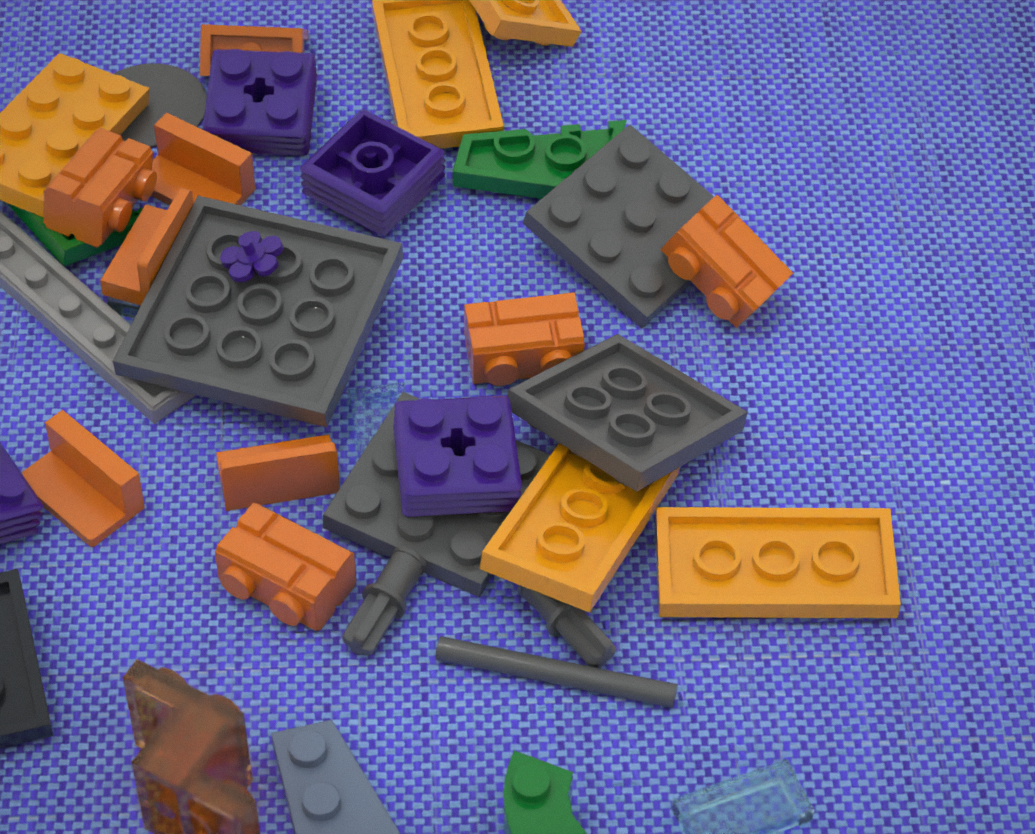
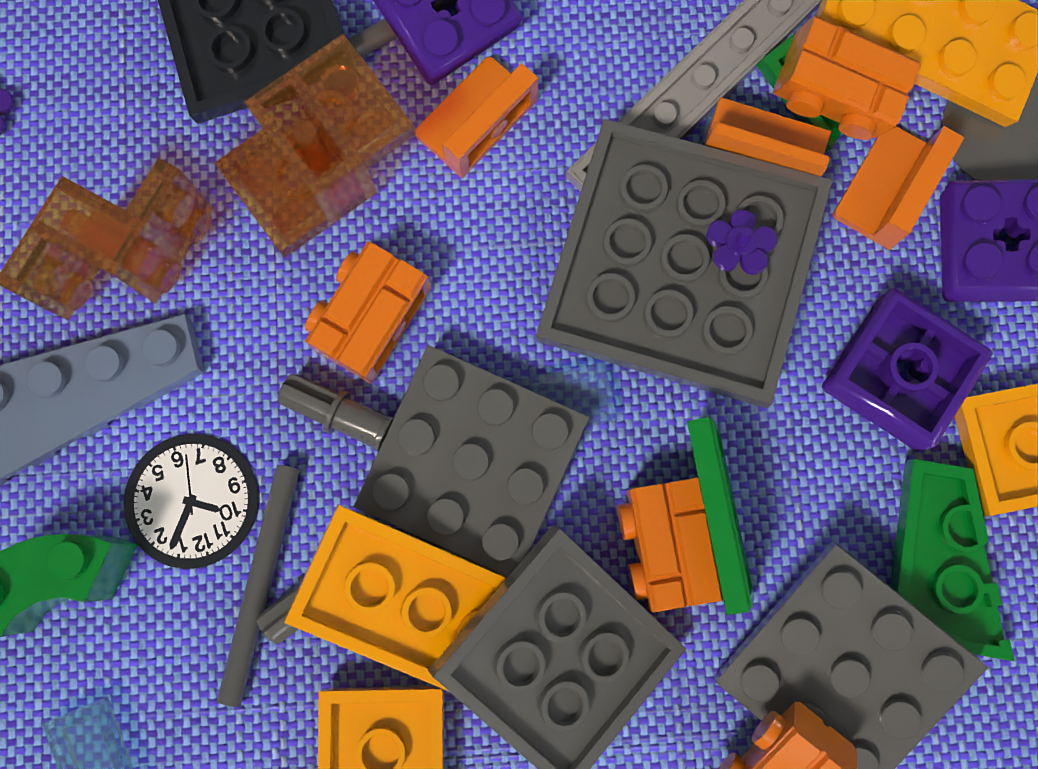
camera: 90 degrees right, 30 degrees up
(110, 589) = (315, 145): none -> clear orange bracket
(278, 472) = (499, 298): orange panel -> none
(448, 284) = (721, 515): none -> green tile
(463, 739) = (190, 501): none -> sticker
(477, 480) = (456, 509): dark purple brick -> none

